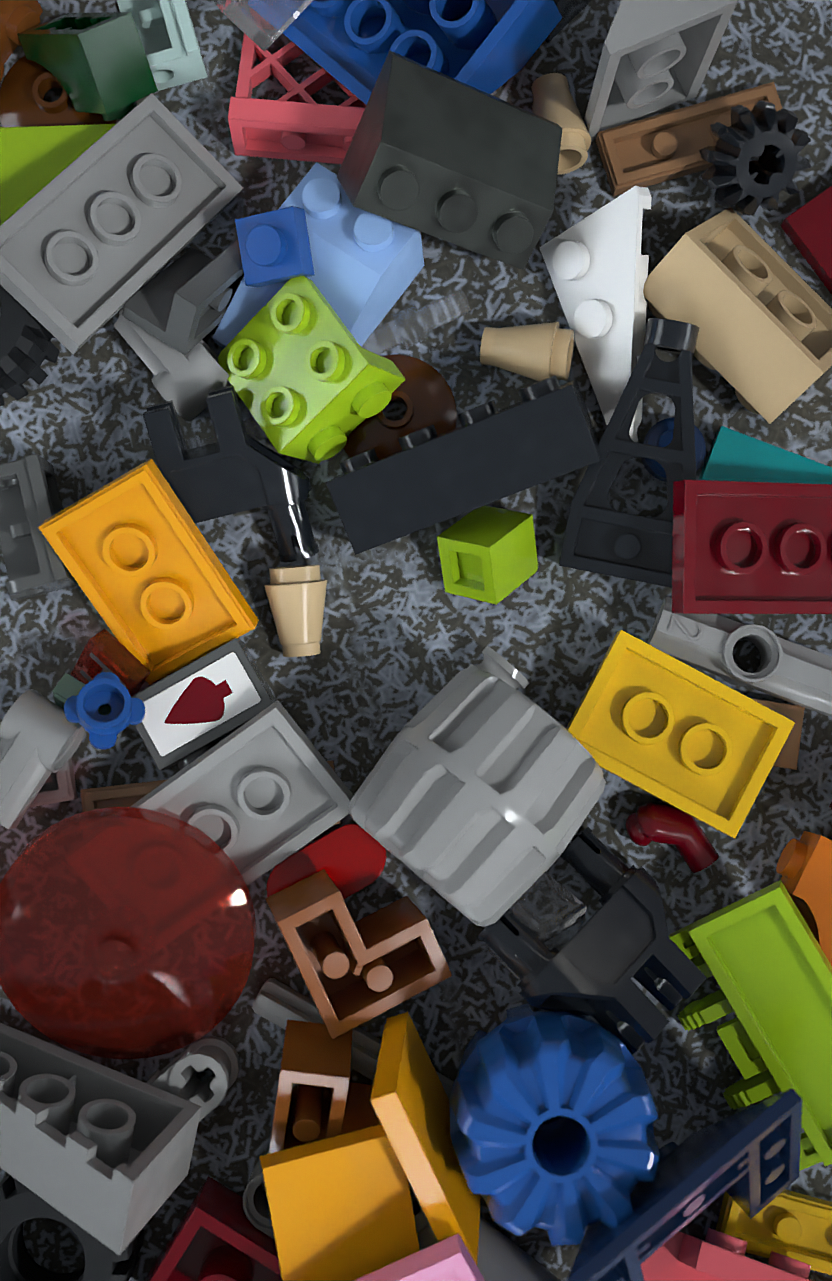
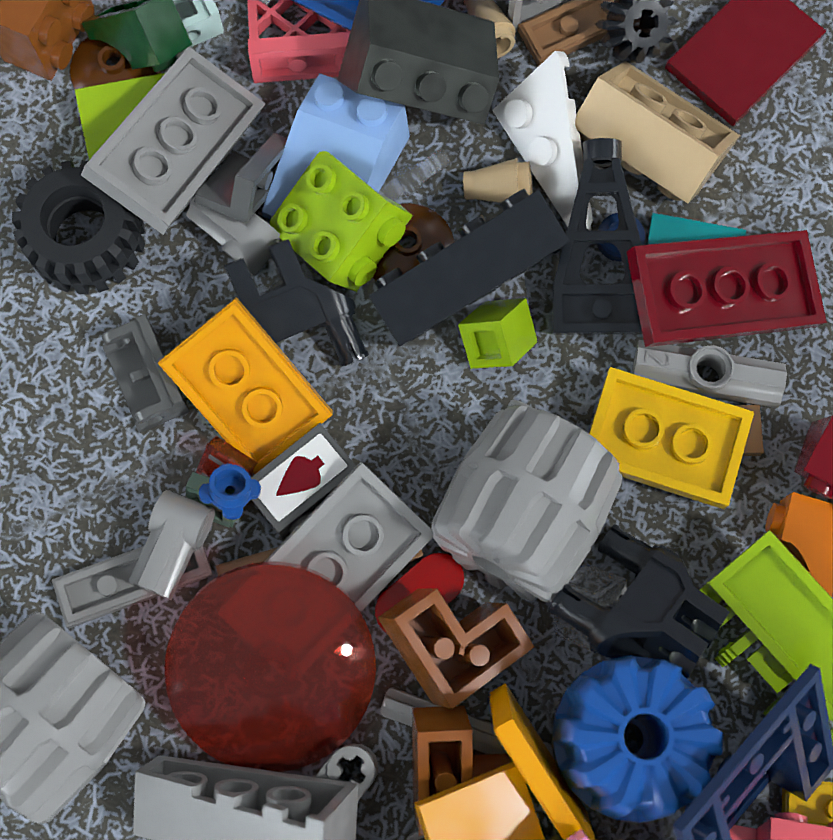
camera: 15 degrees left, 10 degrees down
(274, 246) = (300, 134): blue plate -> none
(297, 607) = (360, 397): tan cone -> none
(671, 826) = (680, 512): dark red arm -> none

